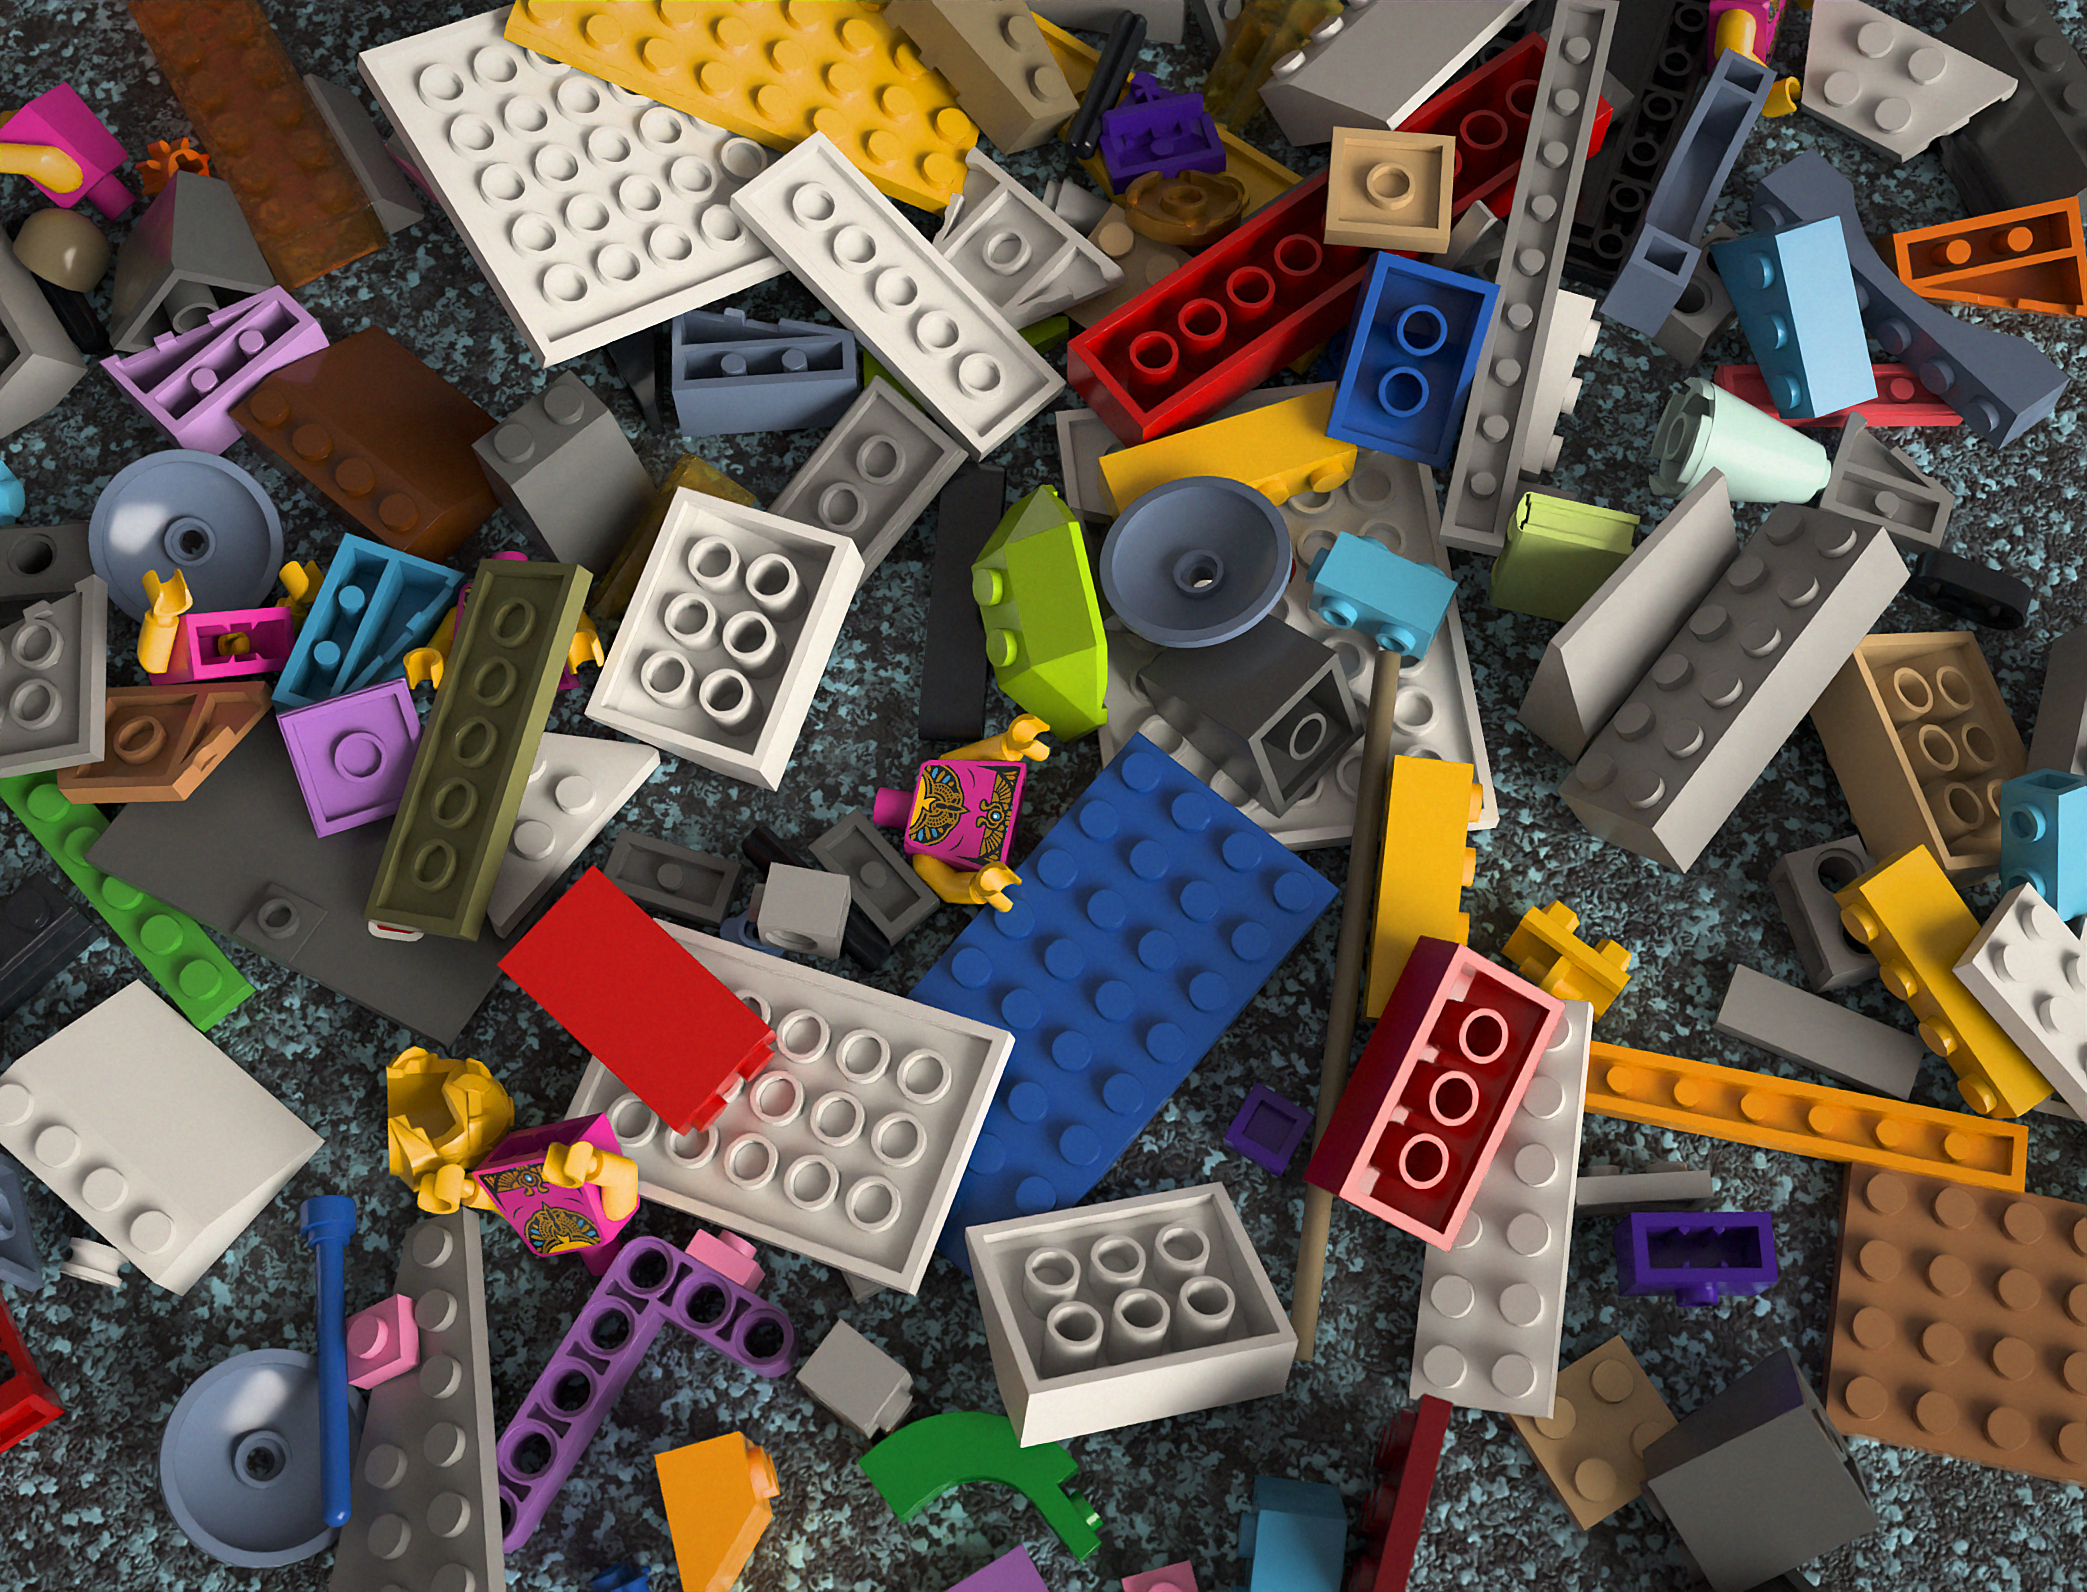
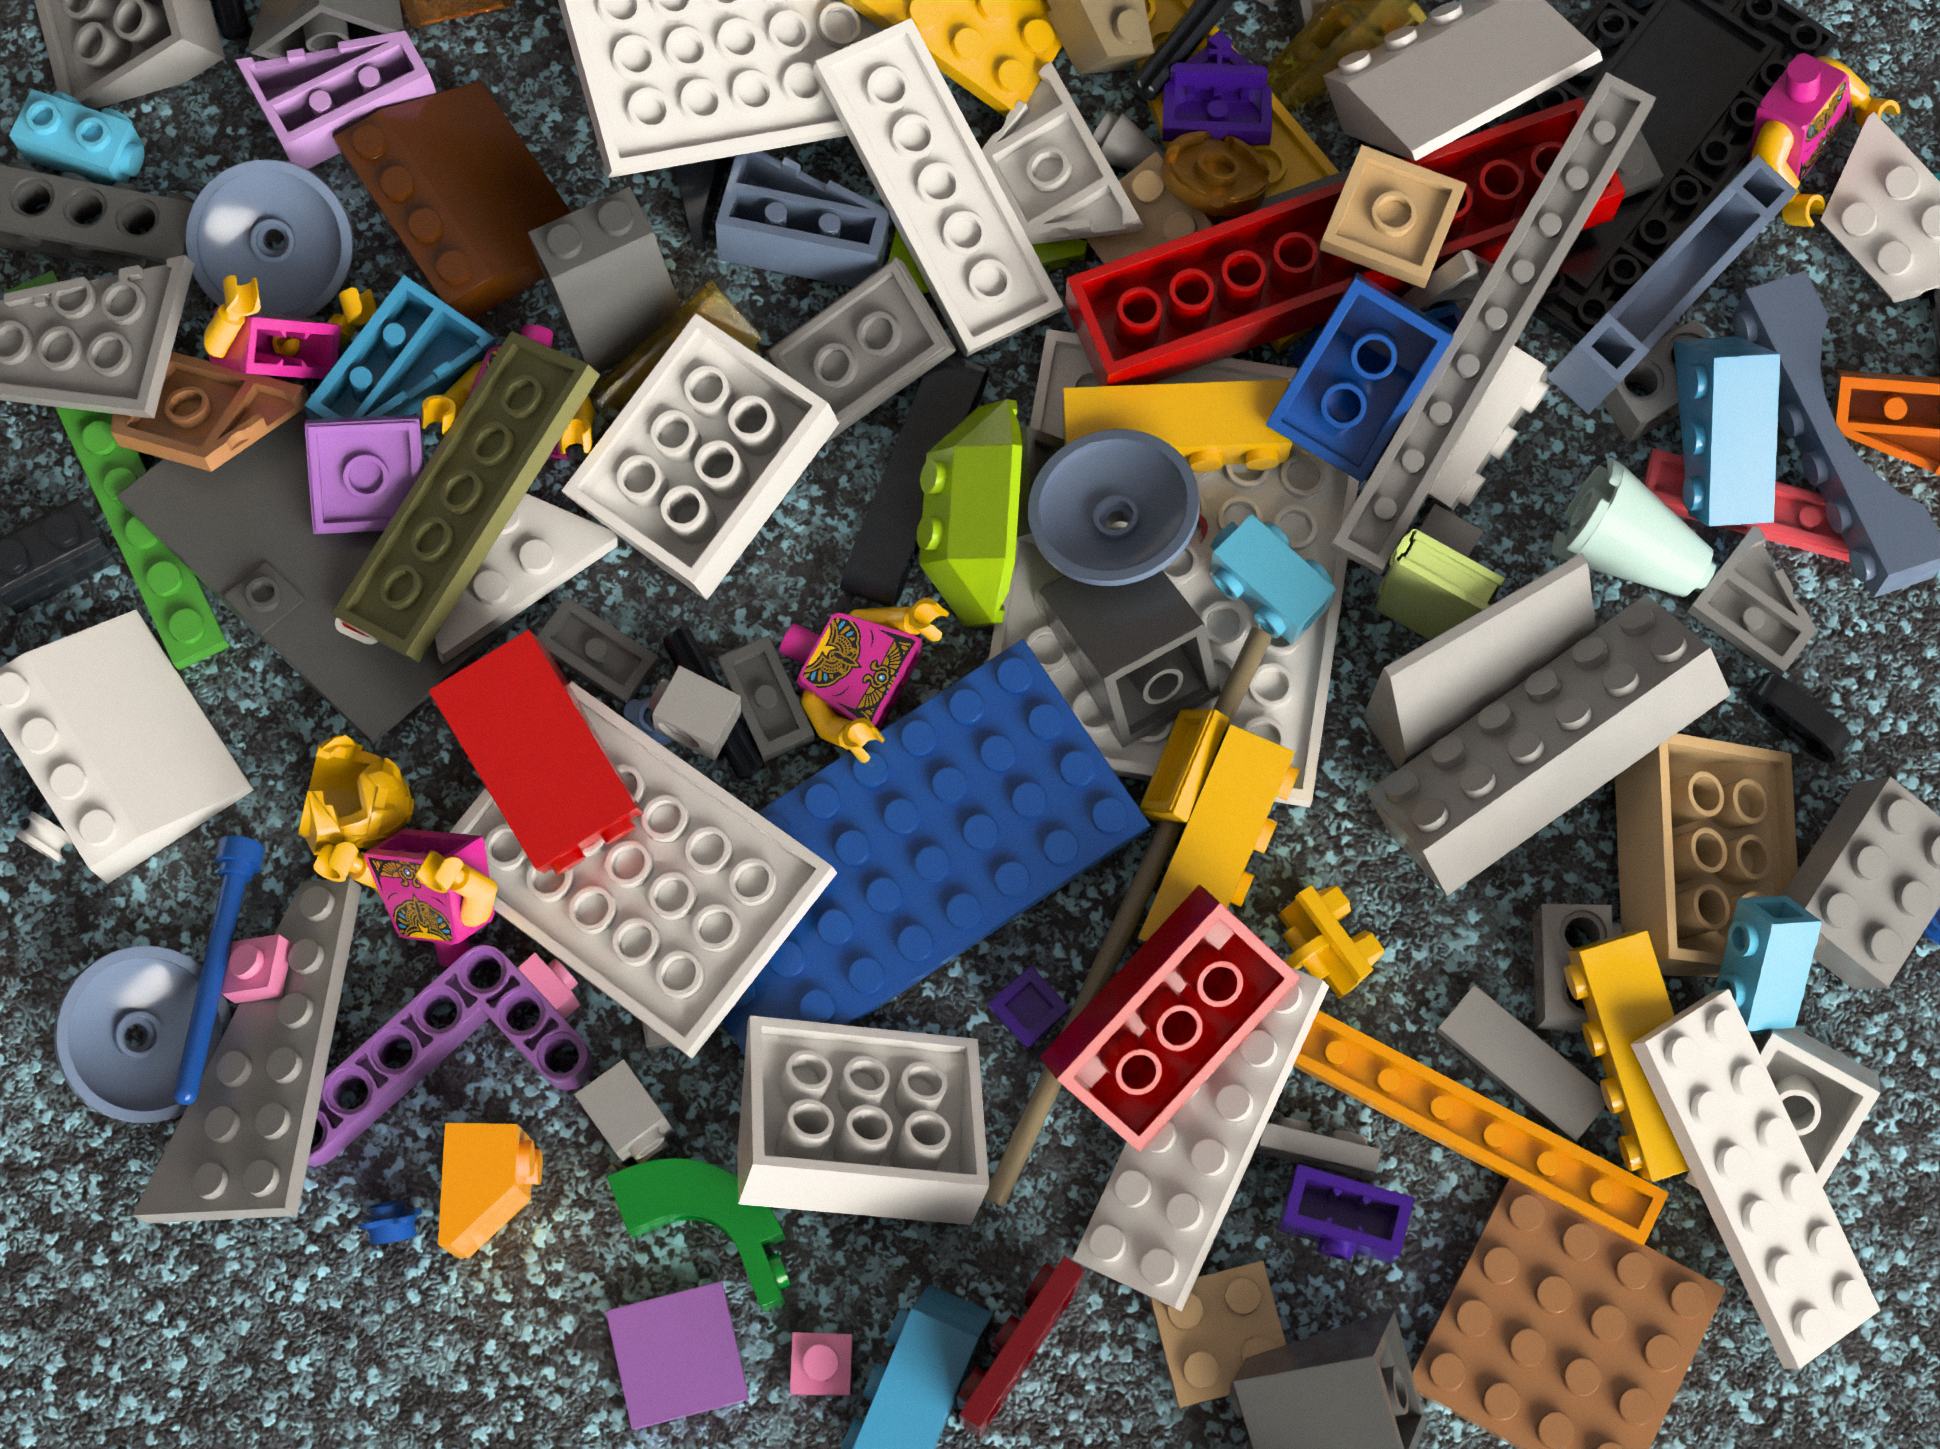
camera: 15 degrees right, 5 degrees up
(1355, 815) = (1184, 765): none -> yellow tile

